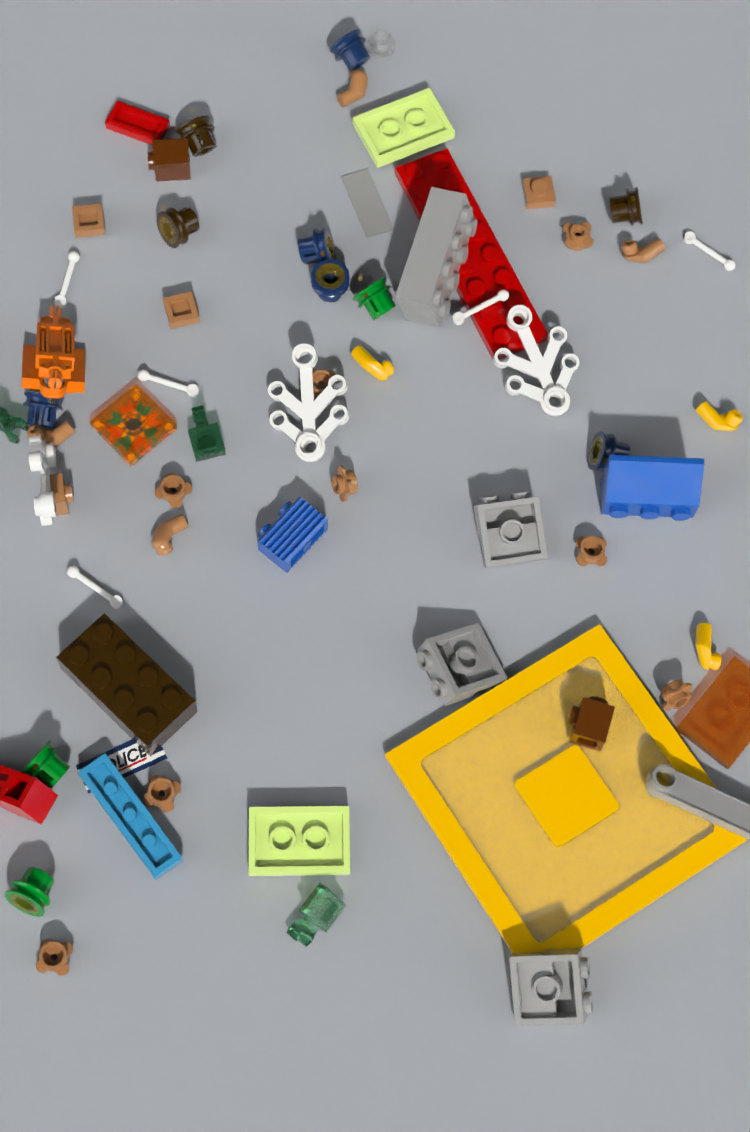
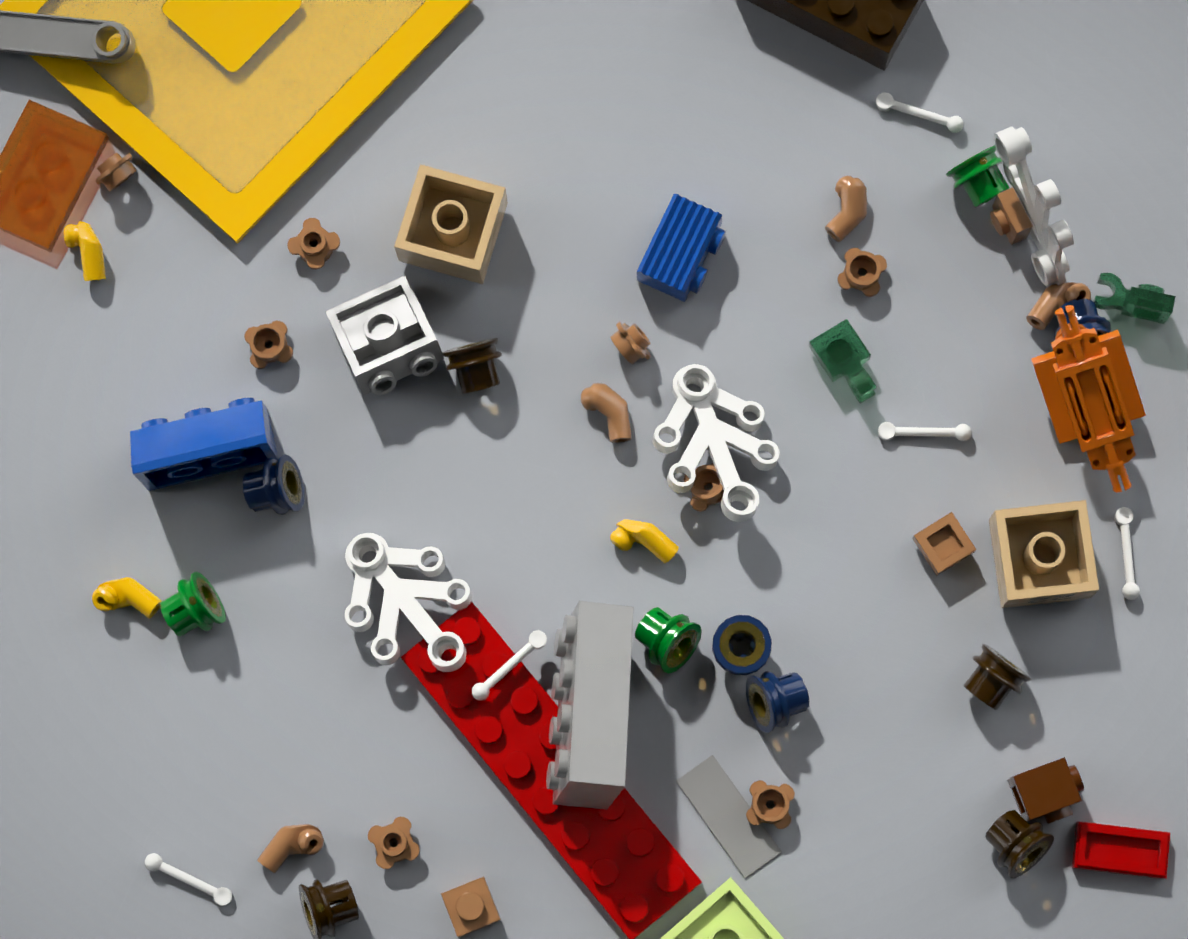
camera: 175 degrees right, 10 degrees up
(71, 527) = (980, 176): none -> green piece
(88, 220) = (1130, 651): medium nougat plate -> none
(121, 280) = (1043, 554): none -> tan brick
(133, 425) = (950, 354): clear orange tile -> none
(340, 191) = (779, 795): none -> medium nougat plate
(369, 449) = (613, 406): none -> medium nougat arm
(446, 586) = (451, 224): none -> tan brick
(454, 496) = (475, 365): none -> dark brown piece
(460, 663) = (405, 130): light grey plate -> none
(542, 617) = (316, 255): none -> medium nougat plate
(591, 722) = (218, 91): reddish brown brick -> none
(675, 395) = (193, 606): none -> green piece

